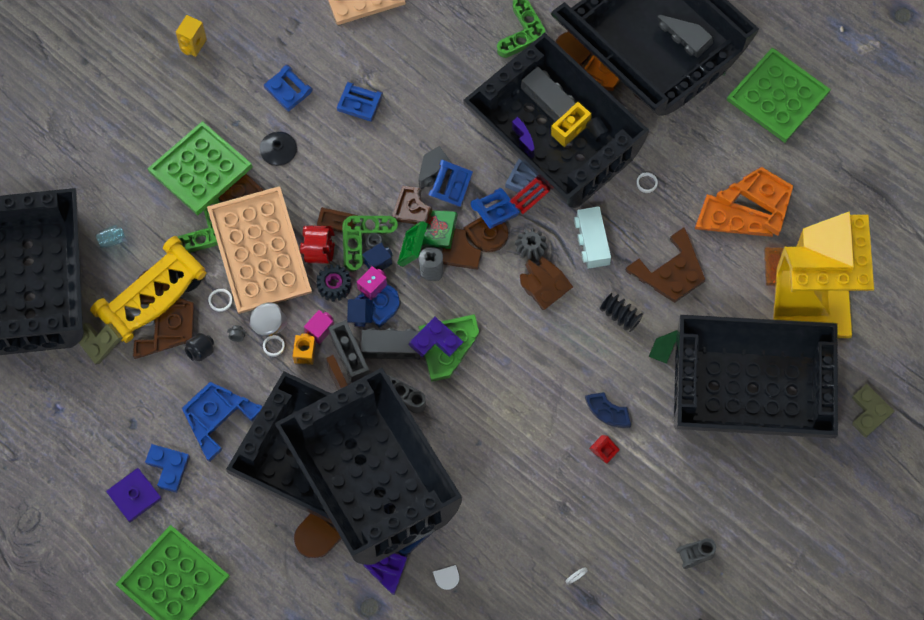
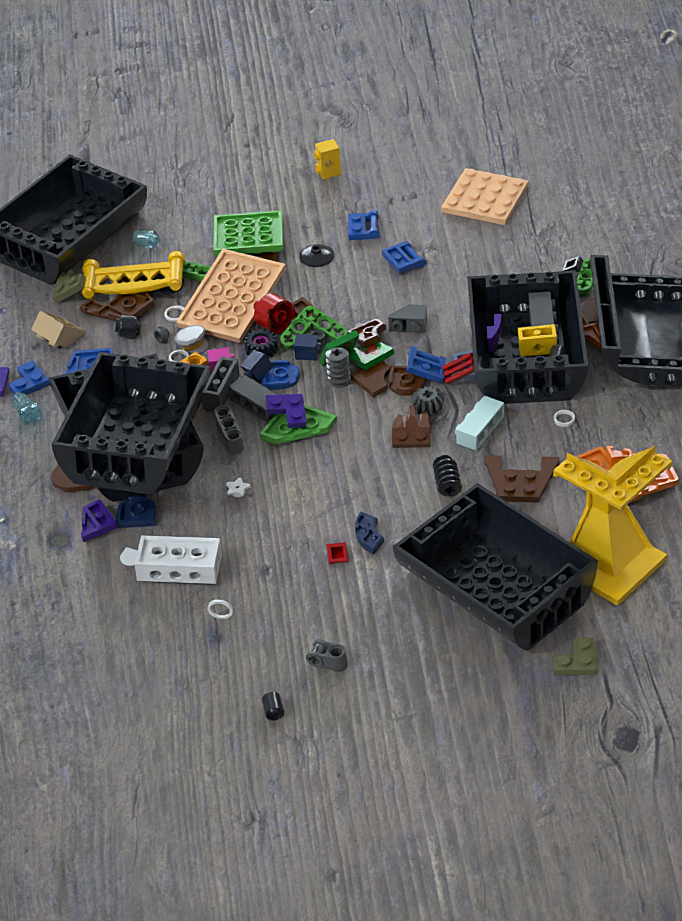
camera: 45 degrees right, 25 degrees down
(139, 396) = (56, 329): none -> tan slope
(207, 501) = (27, 410): none -> clear light blue piece
(372, 283) = (284, 354): dark pink brick -> none
(456, 184) = (413, 335): blue plate -> none
(464, 450) = (237, 488): none -> white plate
(498, 542) = (178, 559): none -> white brick
(509, 16) = (573, 264): none -> black tile

